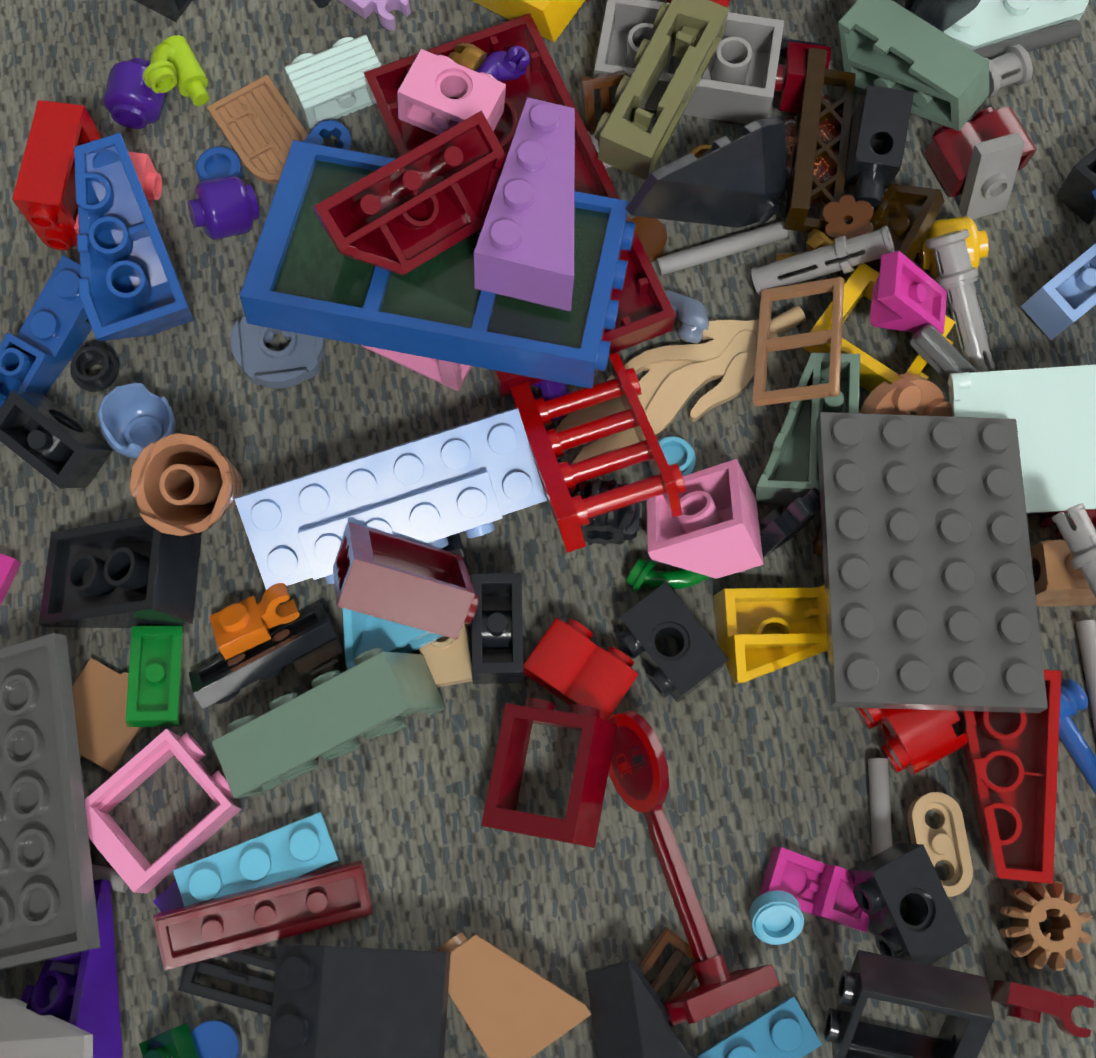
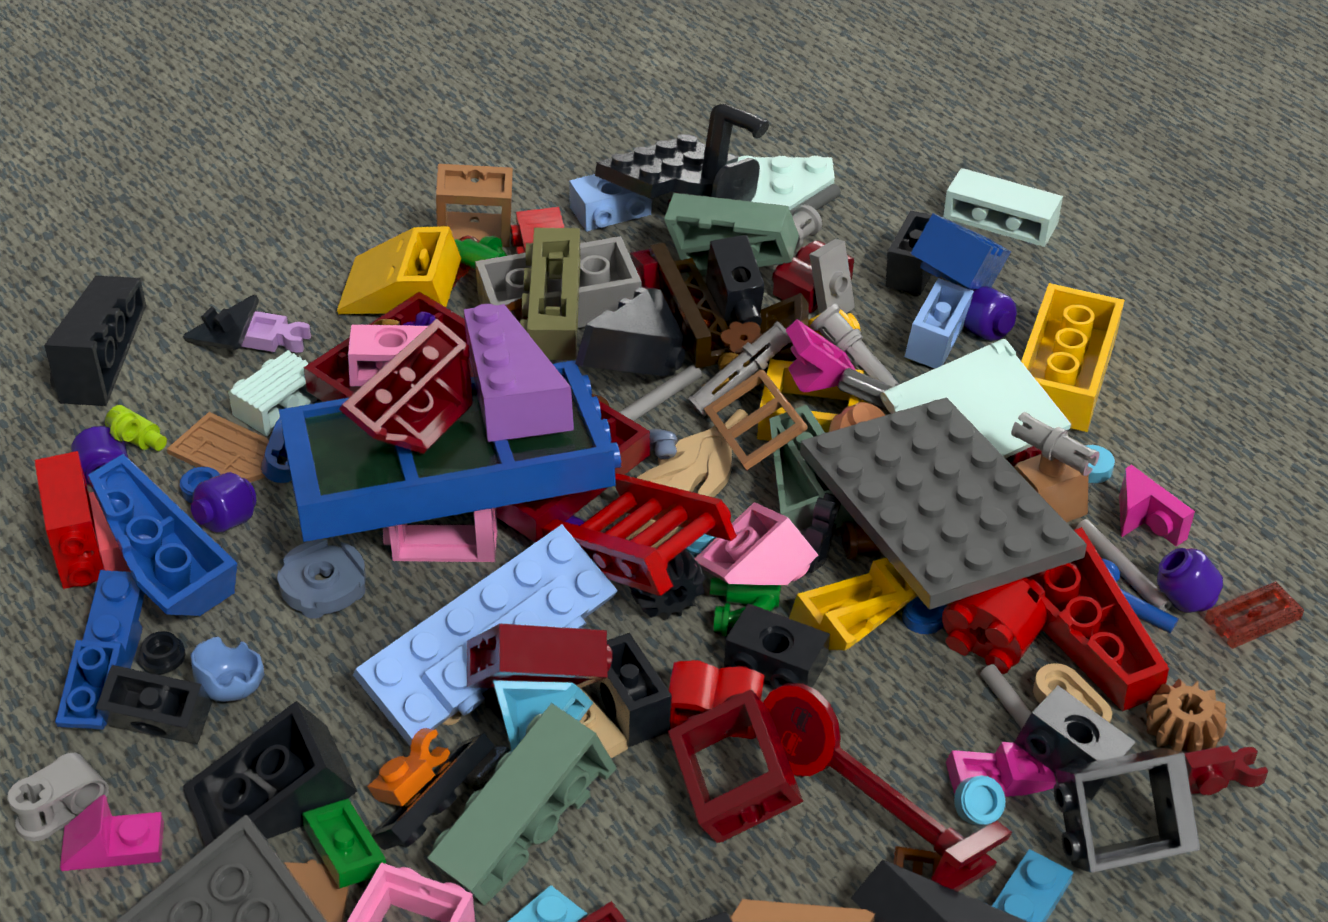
camera: 25 degrees left, 30 degrees down
(183, 484) = (314, 659): nougat cone -> none

